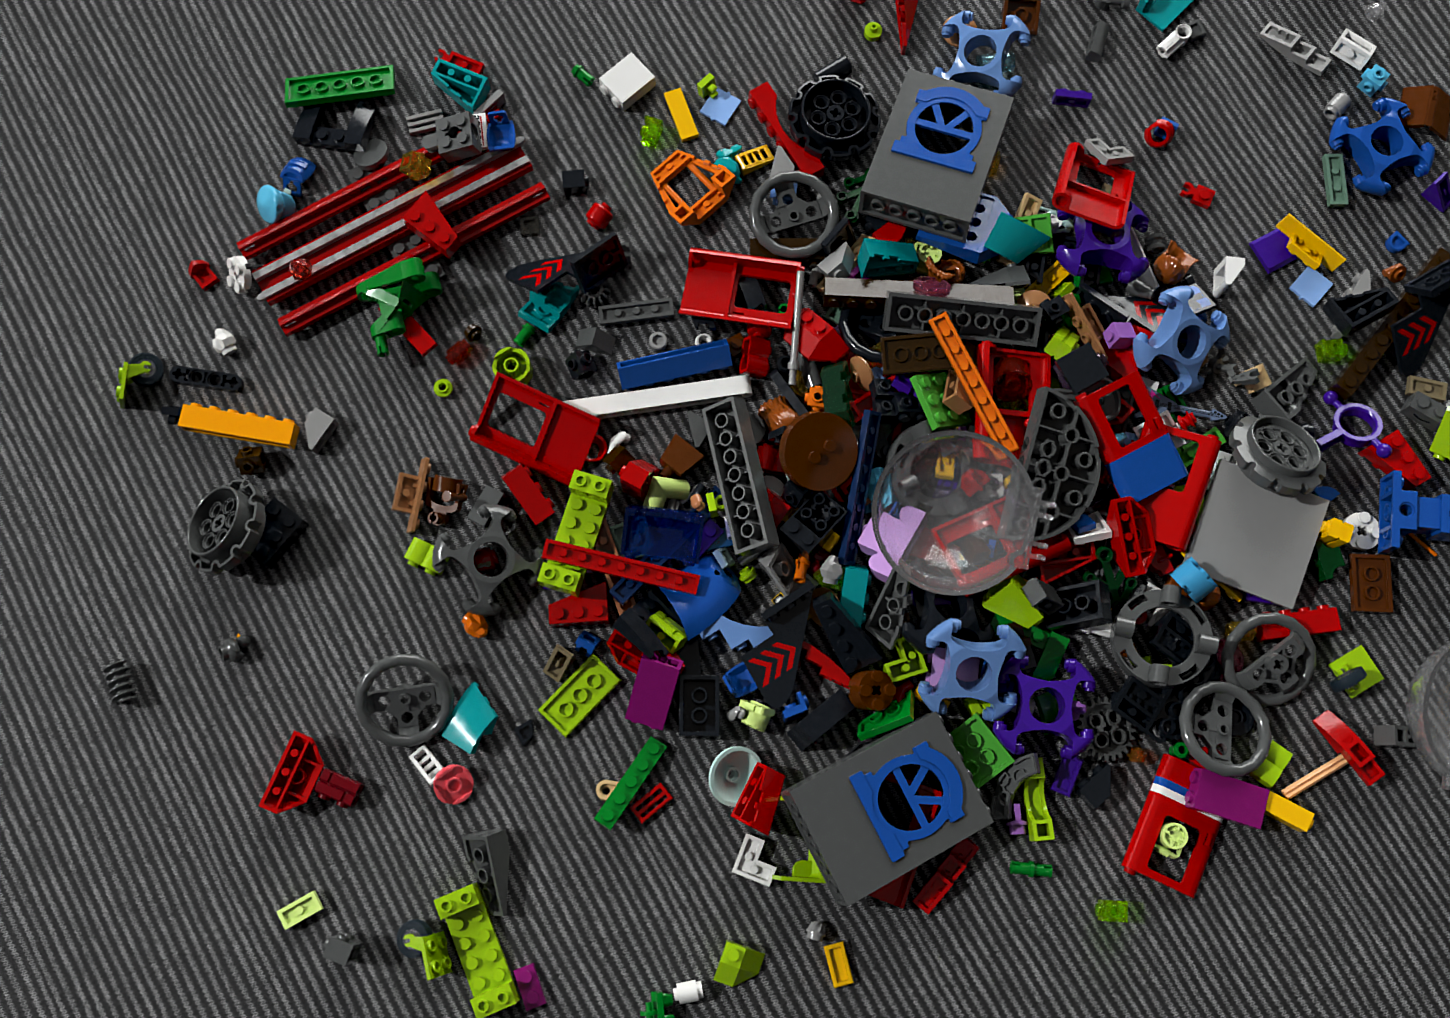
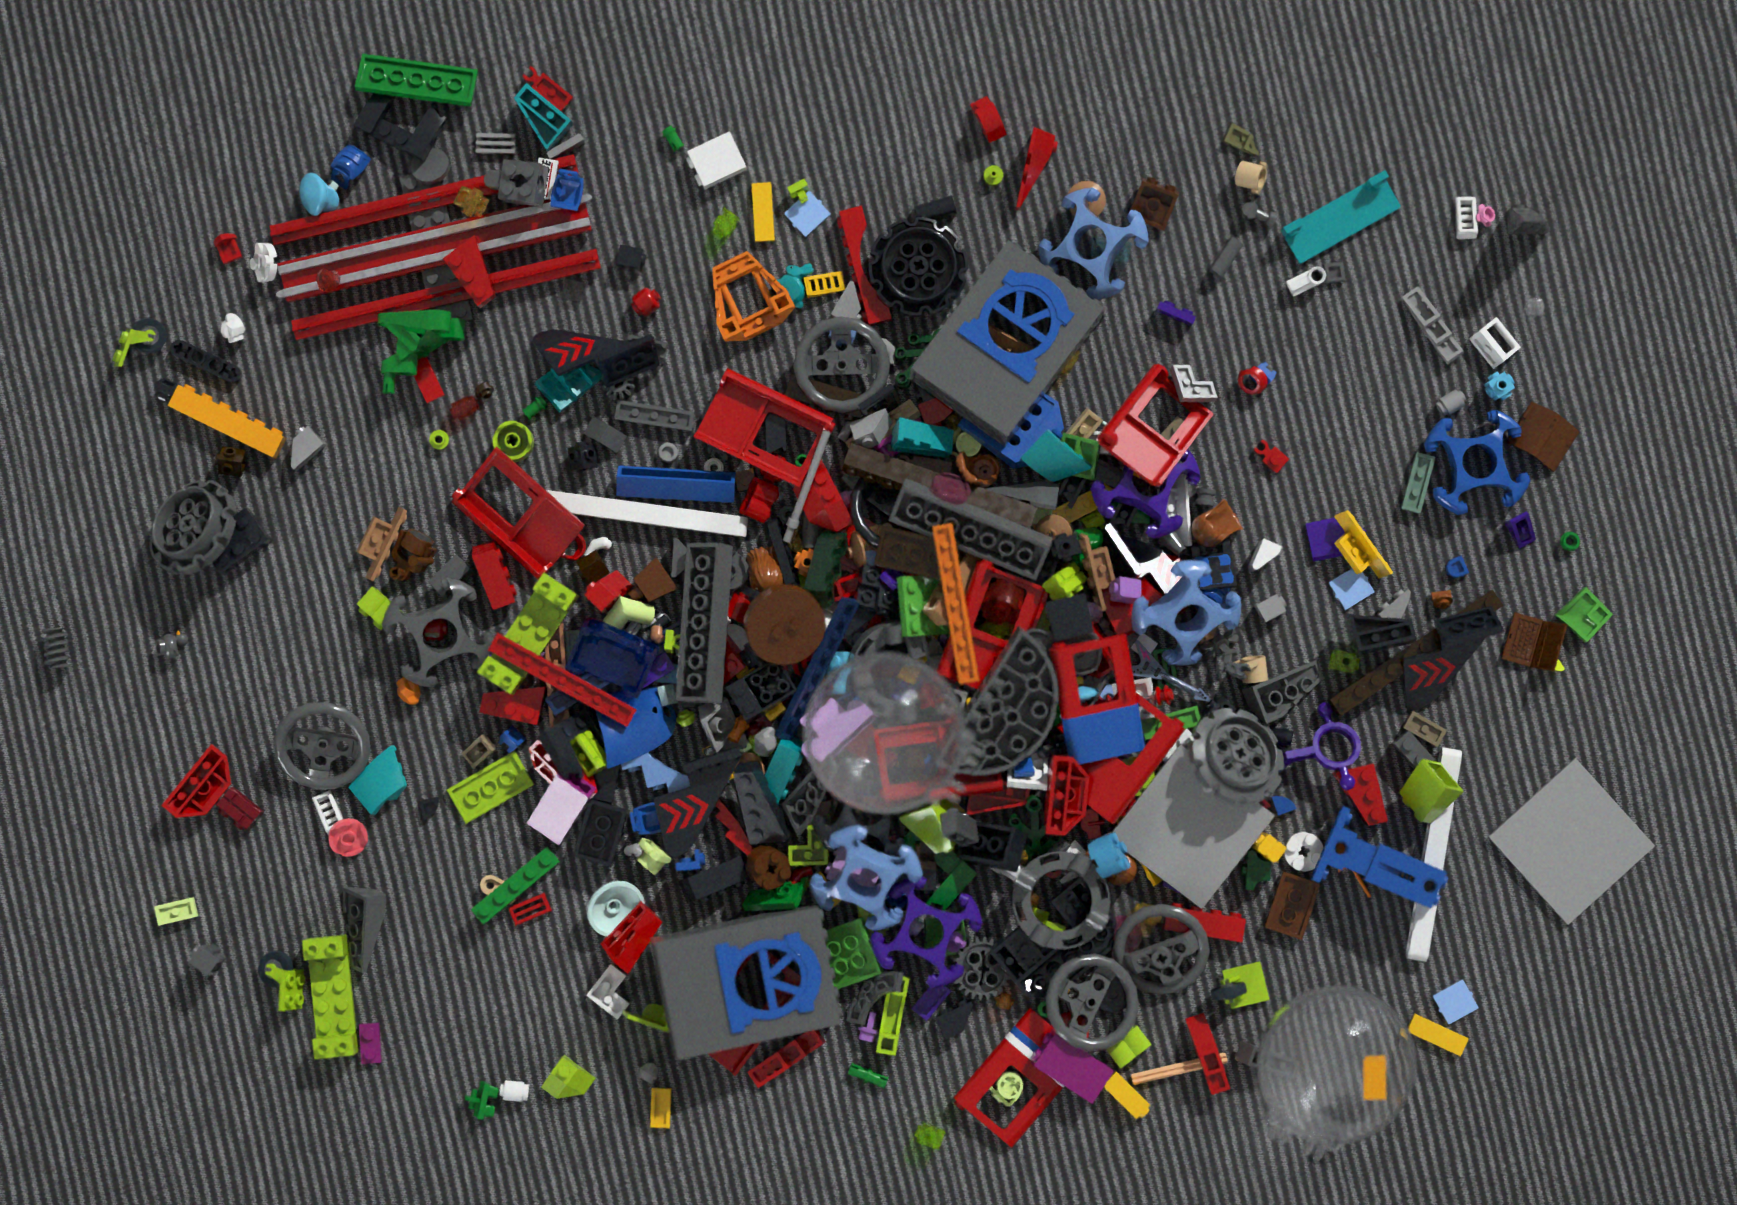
camera: 15 degrees right, 10 degrees up
(1248, 322) = (1271, 607): none -> light grey brick

